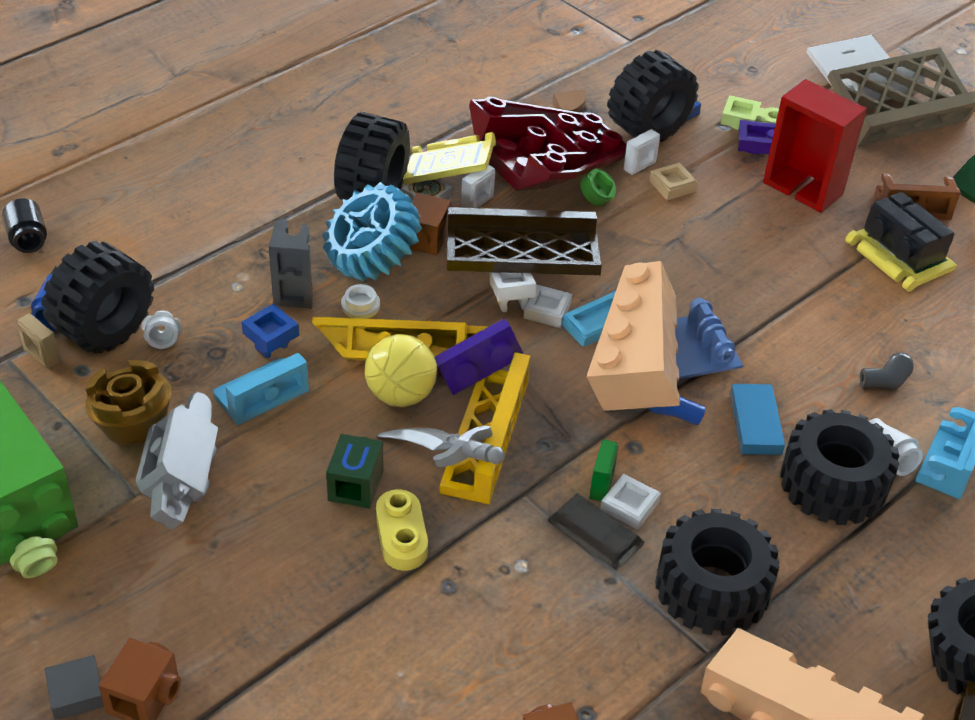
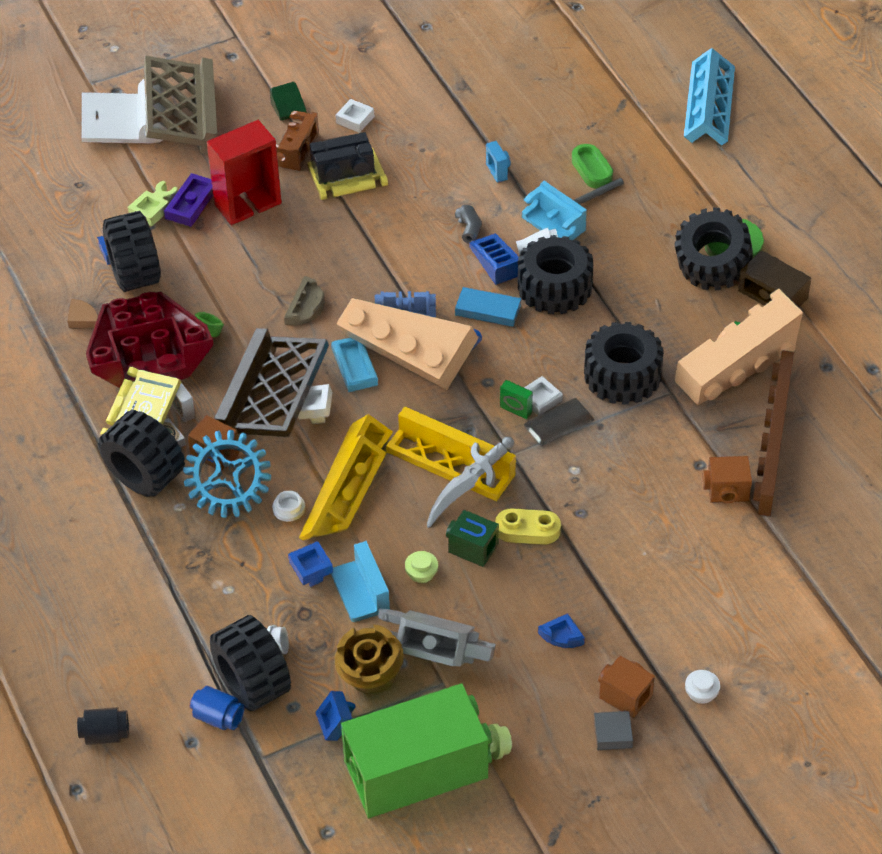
camera: 70 degrees left, 5 degrees up
(38, 341) = (263, 724): tan tile -> none
(56, 396) = (332, 713): none -> blue tile
(234, 599) = (562, 632): none -> blue tile
(290, 266) = (248, 535): dark grey hinge -> none
(303, 435) = (421, 566): none -> yellowish green plate
(400, 370) = (391, 487): light yellow piece -> none
(478, 356) = (393, 449): dark purple plate -> none
(548, 306) = (340, 390): white tile -> none
(641, 152) = (177, 284): white tile -> none
(673, 181) = (212, 277): tan tile -> none
(677, 259) = (306, 304): none -> dark tan tile
(868, 401) = (497, 272): none -> blue slope

